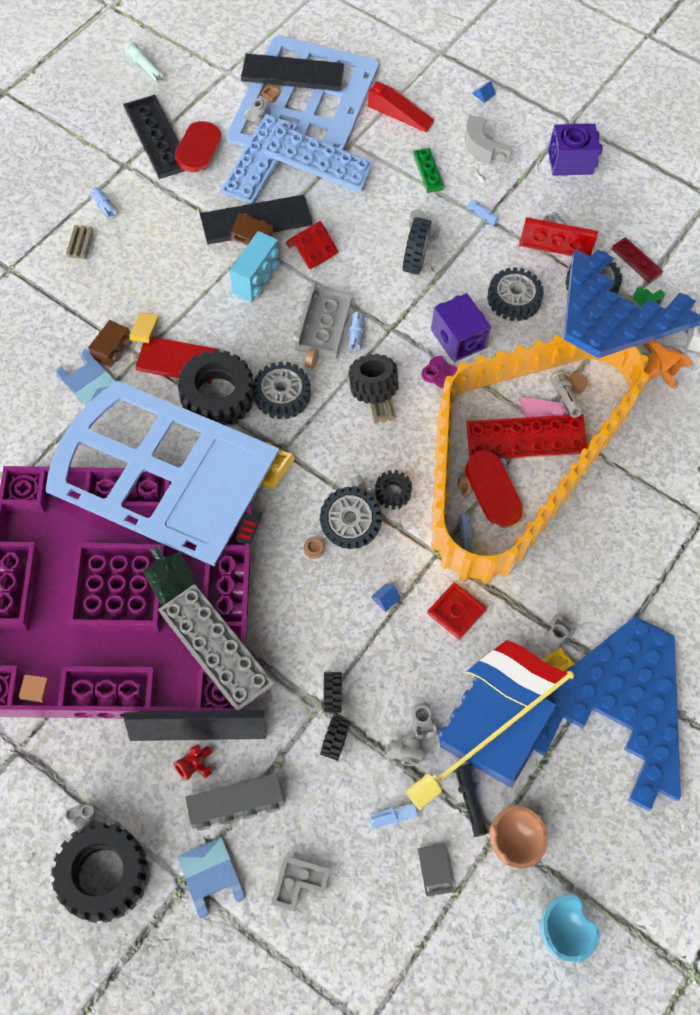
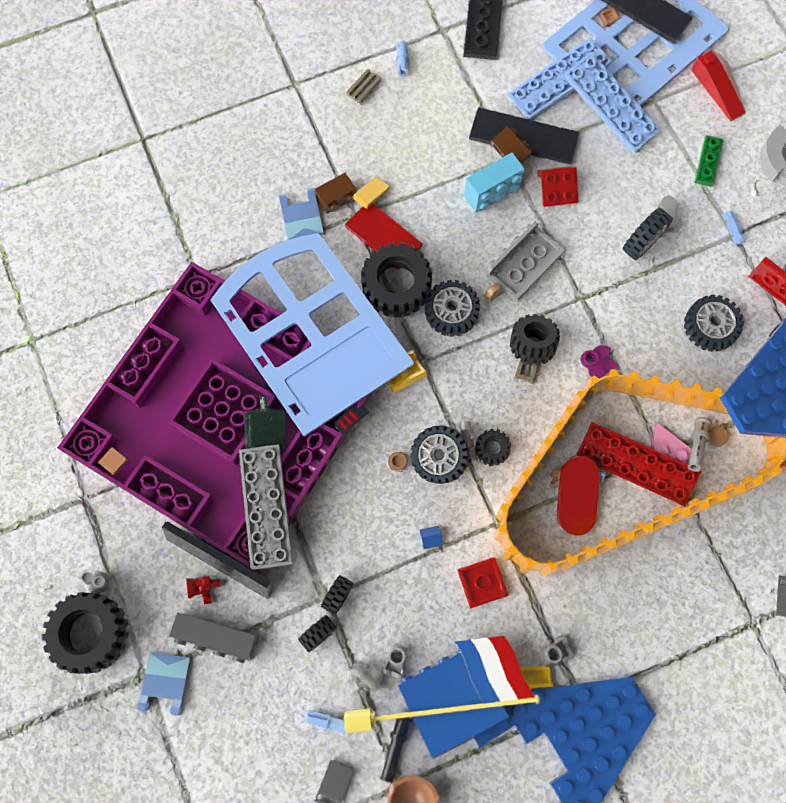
camera: 35 degrees right, 10 degrees up
(198, 146) = (513, 41): red tile -> none
(257, 111) = (584, 31): light grey plate -> none
(297, 875) = (224, 723): light grey plate -> none
(356, 331) = (548, 285): light blue pin -> none
(460, 327) = (641, 330): dark purple brick -> none
(466, 532) = (531, 519): light blue axle -> none

